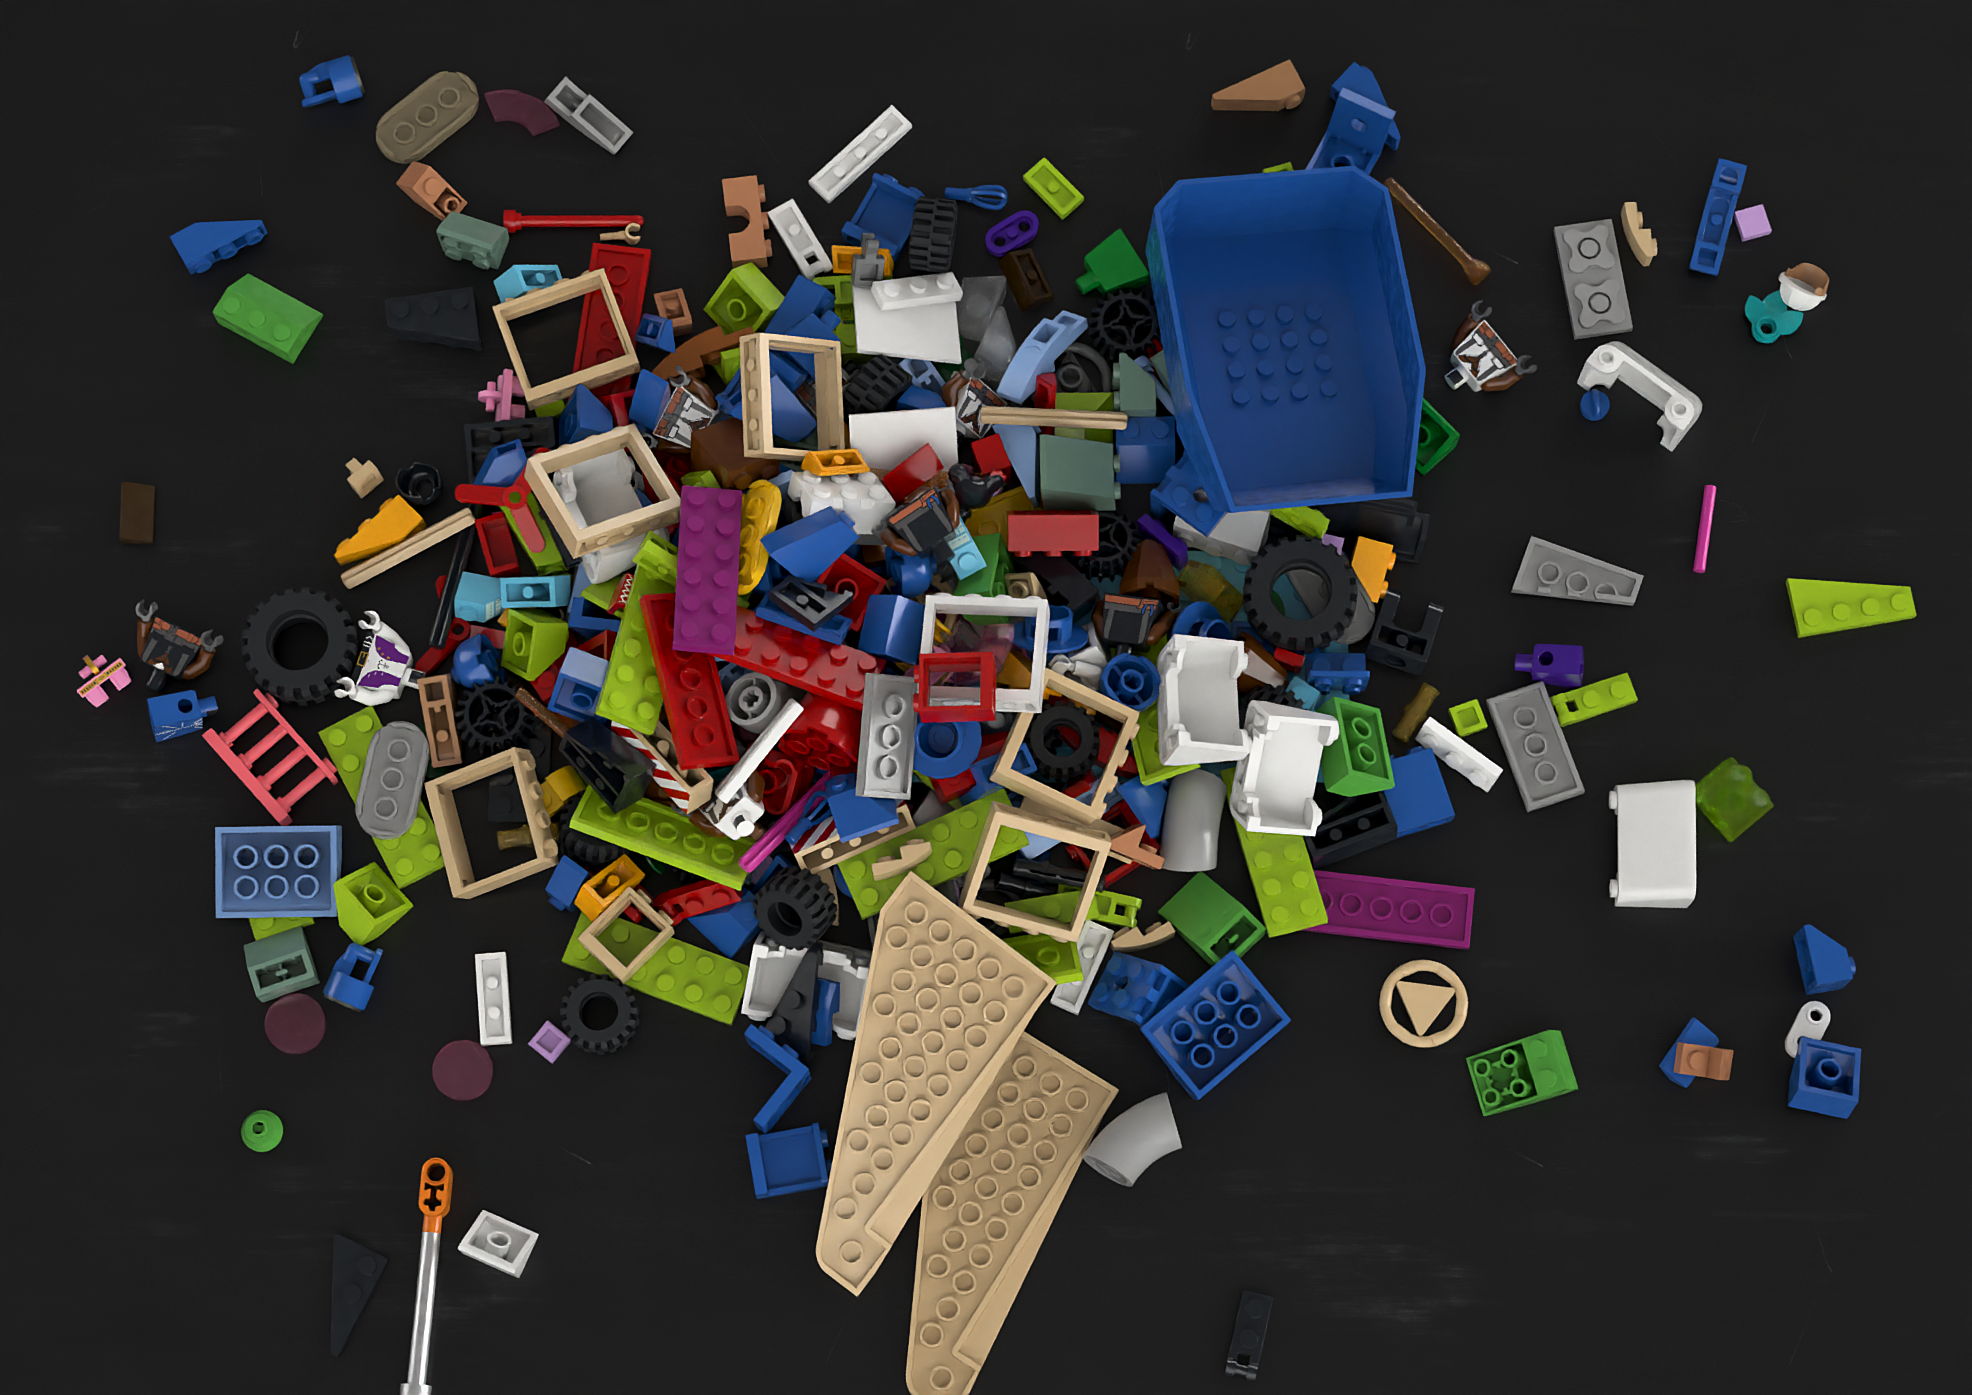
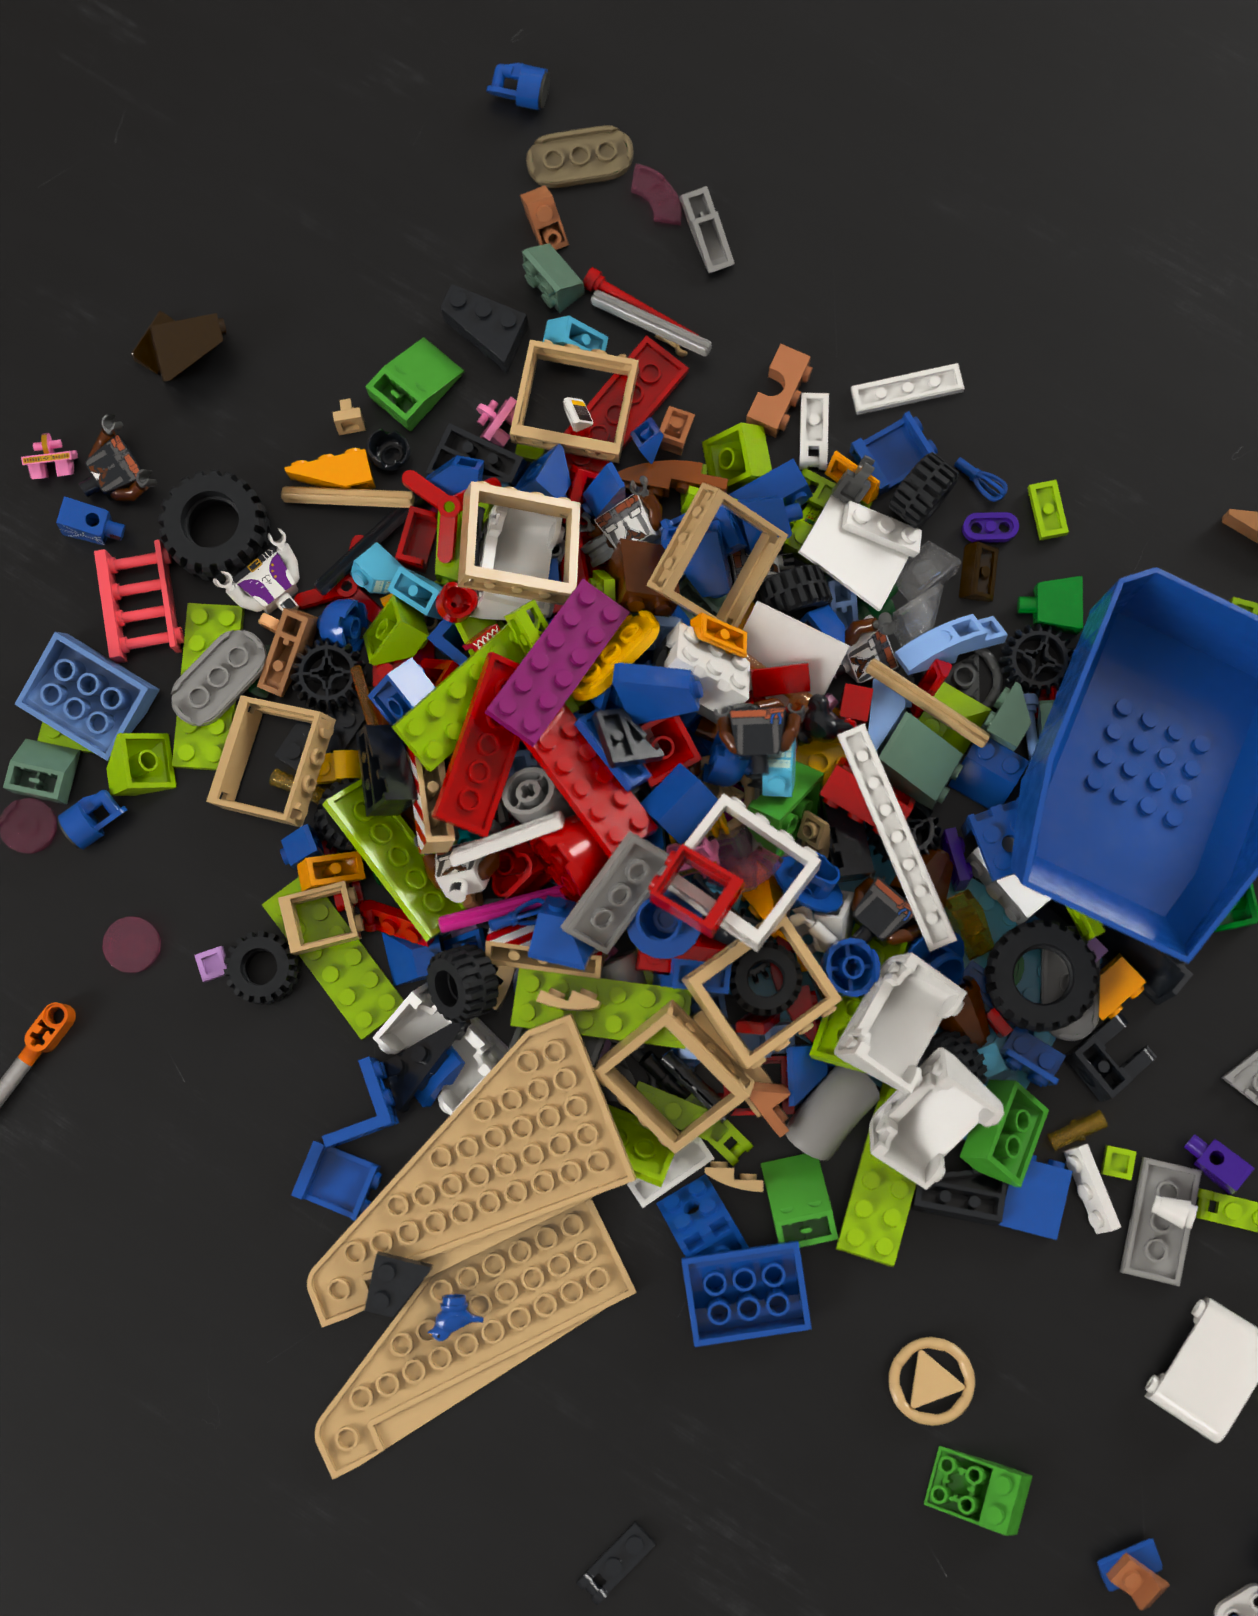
camera: 40 degrees right, 5 degrees up
(167, 497) = (185, 341): none -> dark brown slope
(211, 241) = (344, 158): blue slope -> none
(267, 317) = (355, 244): bright green slope -> none
(404, 410) = (413, 382): none -> bright green slope
(409, 704) = (268, 622): none -> light nougat tile
(493, 998) = (189, 902): white plate -> none
(499, 1243) = (69, 1103): white slope -> none
(576, 577) = (455, 602): none -> red piece
(578, 348) = (577, 413): none -> white slope
(590, 229) = (651, 323): none -> light grey axle
(674, 458) = (597, 550): none -> dark grey wheel
(898, 1211) = (393, 1282): none -> black wing
(969, 1210) = (452, 1316): none -> blue animal
(1099, 546) = (896, 837): none -> white tile
(1134, 1140) = (624, 1345): light grey brick -> none
(1395, 910) = (959, 1286): magenta plate -> none
(1540, 727) = (1176, 1211): none -> white cone

